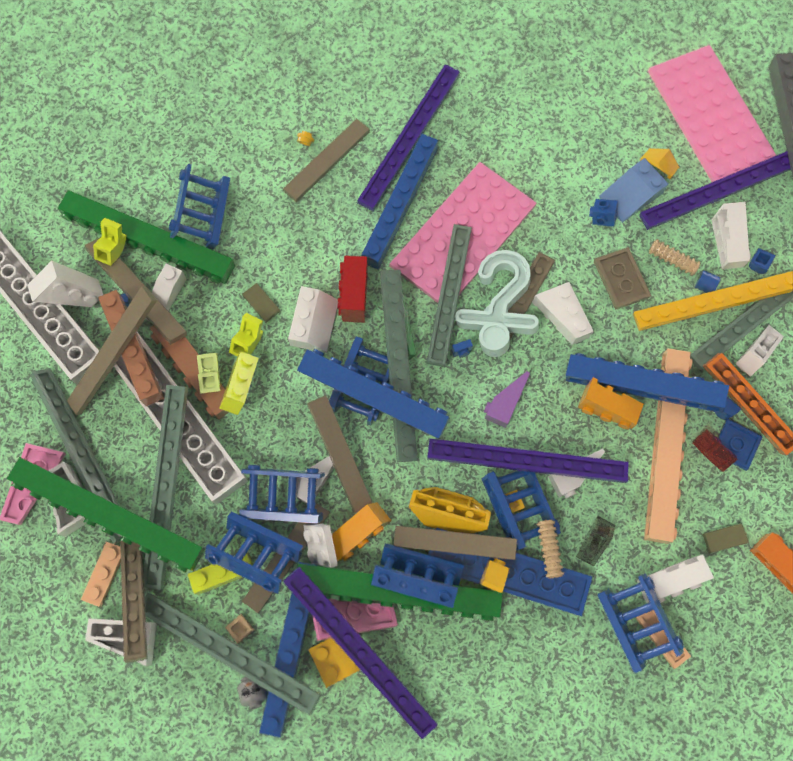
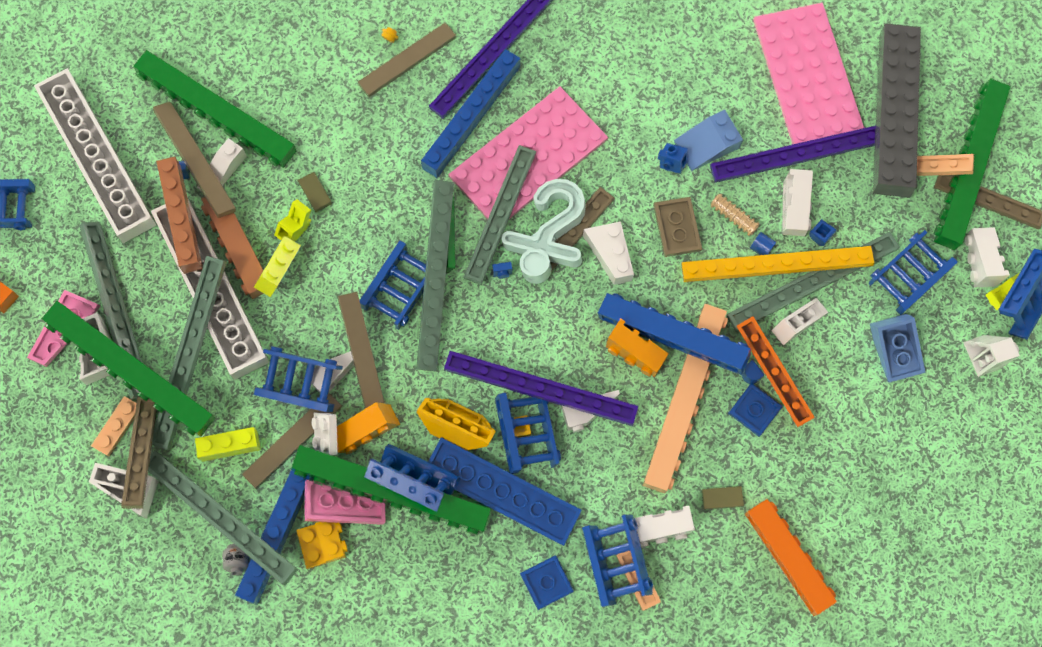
camera: 10 degrees right, 0 degrees up
(64, 286) = (127, 145): white wedge -> none
(111, 243) = (179, 110): neon yellow brick -> none
(112, 350) = (160, 214): dark tan tile -> none
(208, 373) = (250, 252): yellowish green slope -> none
(217, 203) = (290, 87): blue fence -> none
(239, 628) = (235, 499): tan tile -> none
(254, 534) = (264, 412): blue fence -> none
(313, 320) = (362, 217): white slope -> none
(353, 289) = (406, 193): red brick -> none
(360, 652) = (343, 539): dark purple plate -> none
(374, 394) = (404, 299): blue brick -> none
(455, 542) = (455, 454): dark tan tile -> none
(495, 575) = (485, 490): yellow slope -> none
(505, 402) = (532, 330): medium lavender slope -> none
(550, 549) = (545, 475): tan piece -> none
(571, 657) = (546, 582): none -> blue tile
(596, 541) = (593, 477): clear smoke slope -> none
(662, 159) = (744, 115): yellow slope -> none
(714, 451) = (729, 411): clear red slope -> none

